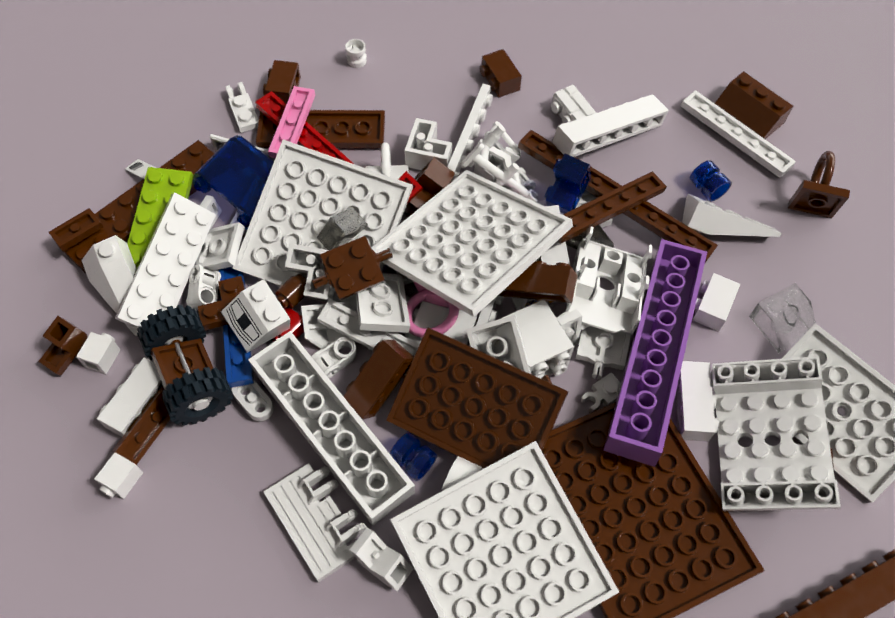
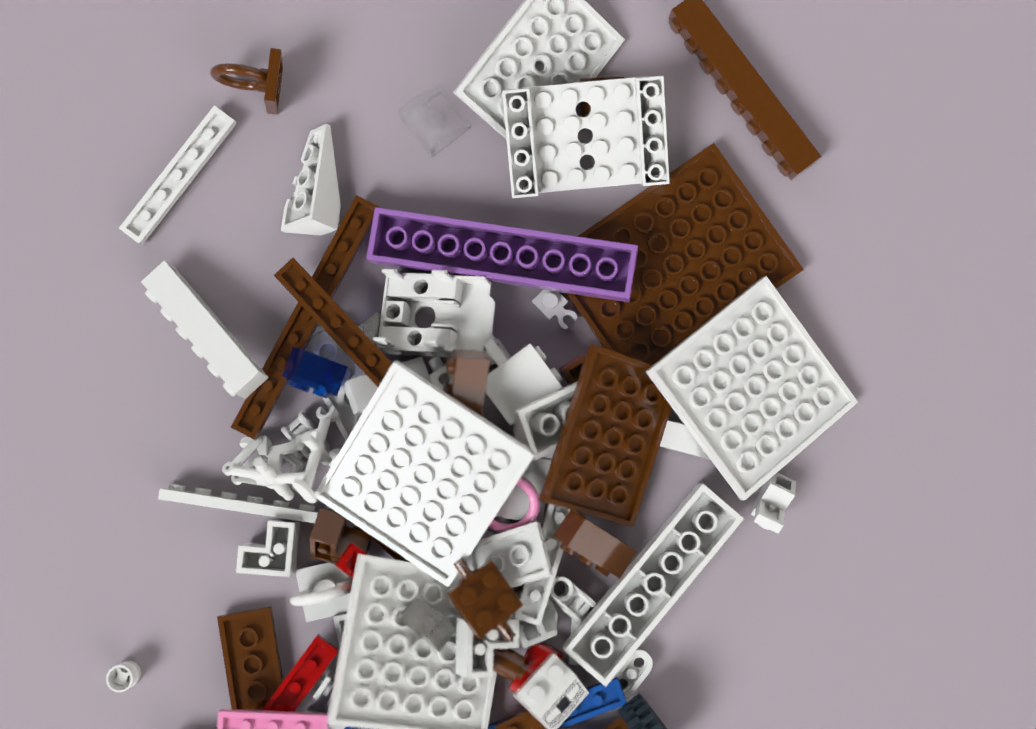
camera: 100 degrees left, 25 degrees up
(314, 523) = (744, 578): white hinge -> none
(404, 452) = (658, 499): clear blue wheel -> none
(500, 73) = (127, 479): reddish brown brick -> none
(570, 104) = (174, 379): white brick -> none
(603, 349) = (510, 312): white plate -> none
(696, 402) = (552, 211): white brick -> none
(710, 180) = (261, 205): clear blue wheel -> none
(715, 302) = (426, 194): white brick -> none
(754, 105) = (134, 157): reddish brown slope -> none

